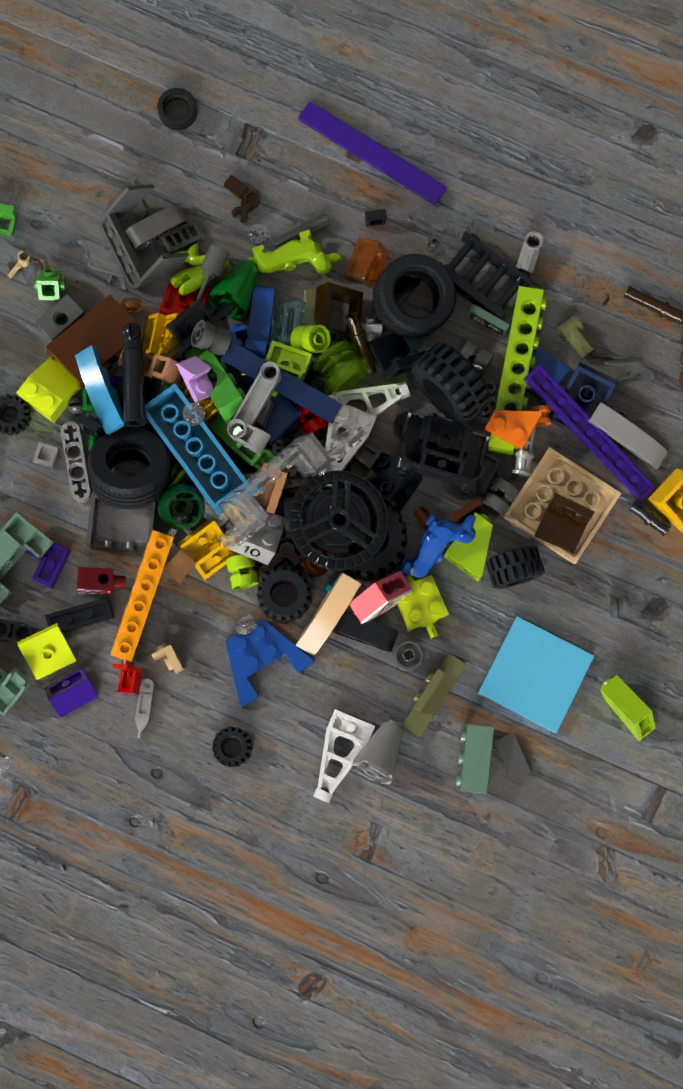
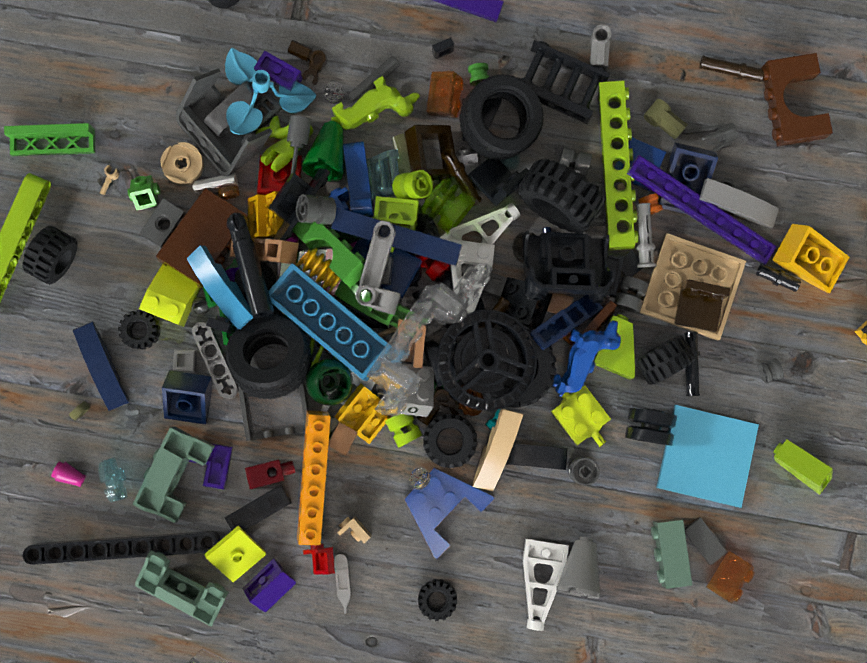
camera: 15 degrees left, 5 degrees up
(39, 490) = (187, 397): none -> dark blue slope
(94, 255) = (187, 174): none -> tan plate
(120, 293) = (215, 183): none -> white slope
(166, 238) = (246, 119): none -> medium azure plant
(193, 414) = (318, 289): clear tile -> none
(195, 377) = (311, 253): lavender slope -> none
(209, 200) = (279, 71): none -> dark purple panel
(381, 597) = (545, 422): coral piece -> none
(403, 247) = (478, 73): none -> bright green wheel
(421, 506) = (565, 321): none -> dark blue slope
(427, 491) = (559, 302): none -> medium nougat tile
(434, 694) = (616, 500): olive bracket -> none
(484, 628) = (650, 427): none -> black wheel
(488, 320) = (577, 123): sand green tile -> none
(513, 426) = (630, 222): orange wing -> none
(529, 799) = (731, 577): none -> clear orange bracket
(543, 581) = (692, 370): none -> black pin

